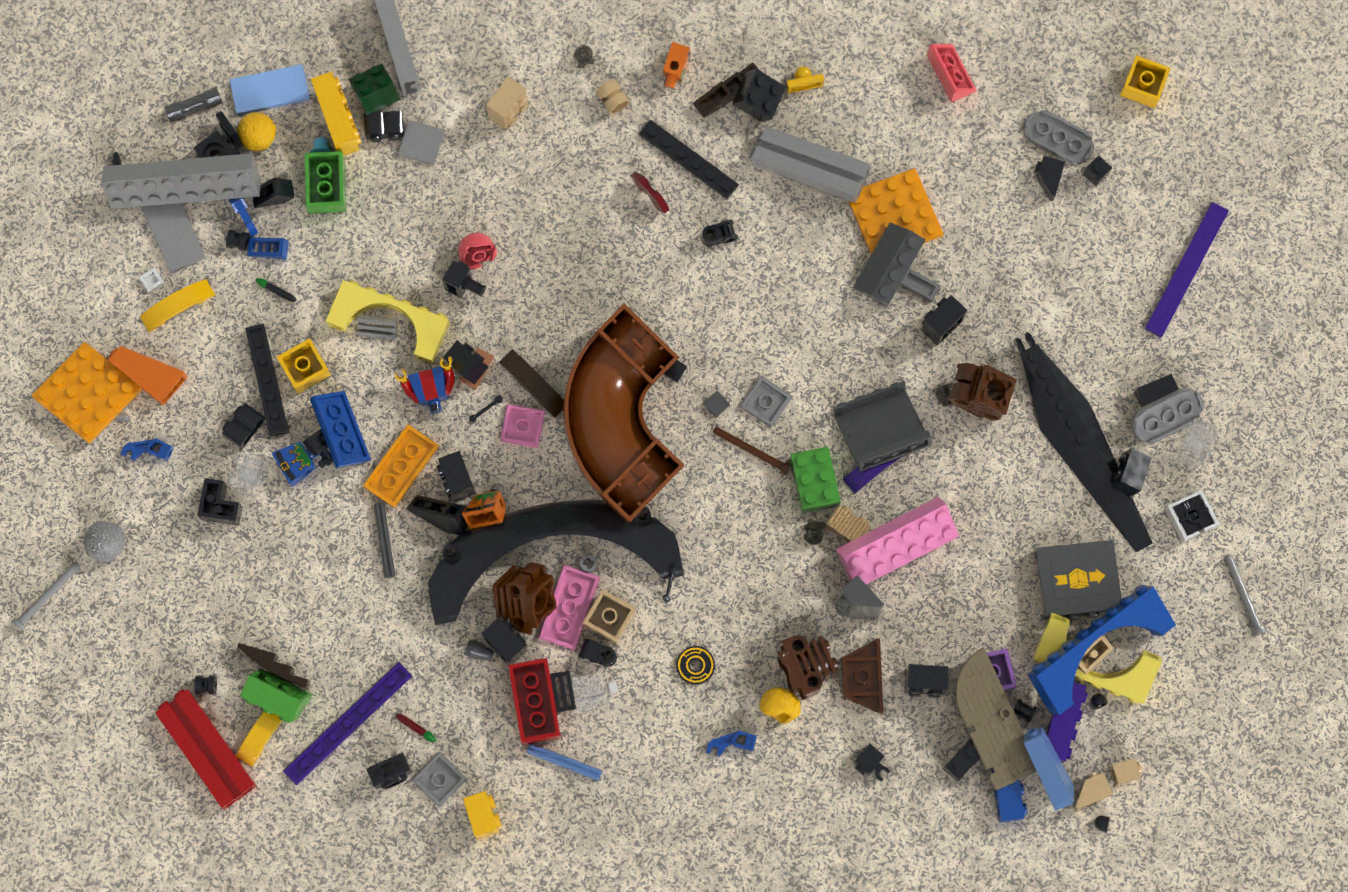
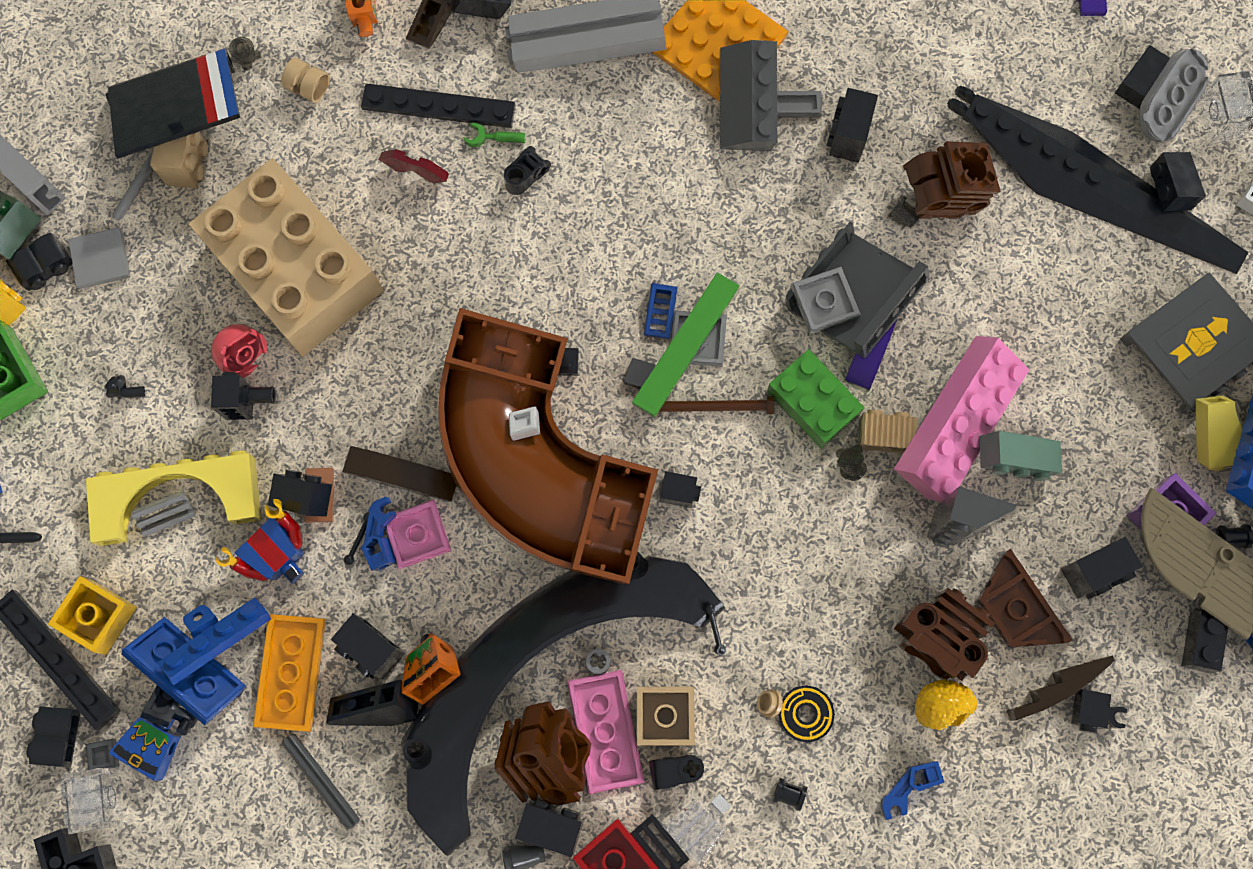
camera: 25 degrees left, 0 degrees up
(265, 450) = (98, 754): none -> dark grey tile
(368, 418) = (211, 637): none -> blue plate
(390, 234) = (117, 388): none -> black plate
(471, 106) = (134, 189): none -> light grey bar
(497, 411) = (374, 534): none -> blue piece
(521, 70) = (172, 103): none -> black door
(538, 209) = (287, 256): none -> tan brick
(623, 394) = (524, 423): none -> white tile
(657, 705) = (790, 794): none -> black bush
(677, 646) = (770, 703): none -> tan plate
(698, 488) = (679, 489): none -> black brick
(719, 203) = (518, 137): none -> bright green piece
(755, 401) = (685, 345): none -> bright green tile
(767, 363) = (663, 289): none -> blue slope
(857, 422) = (825, 300): none -> light grey tile
(863, 737) = (1067, 684): none -> dark brown slope
(919, 585) = (1020, 455): none -> sand green brick

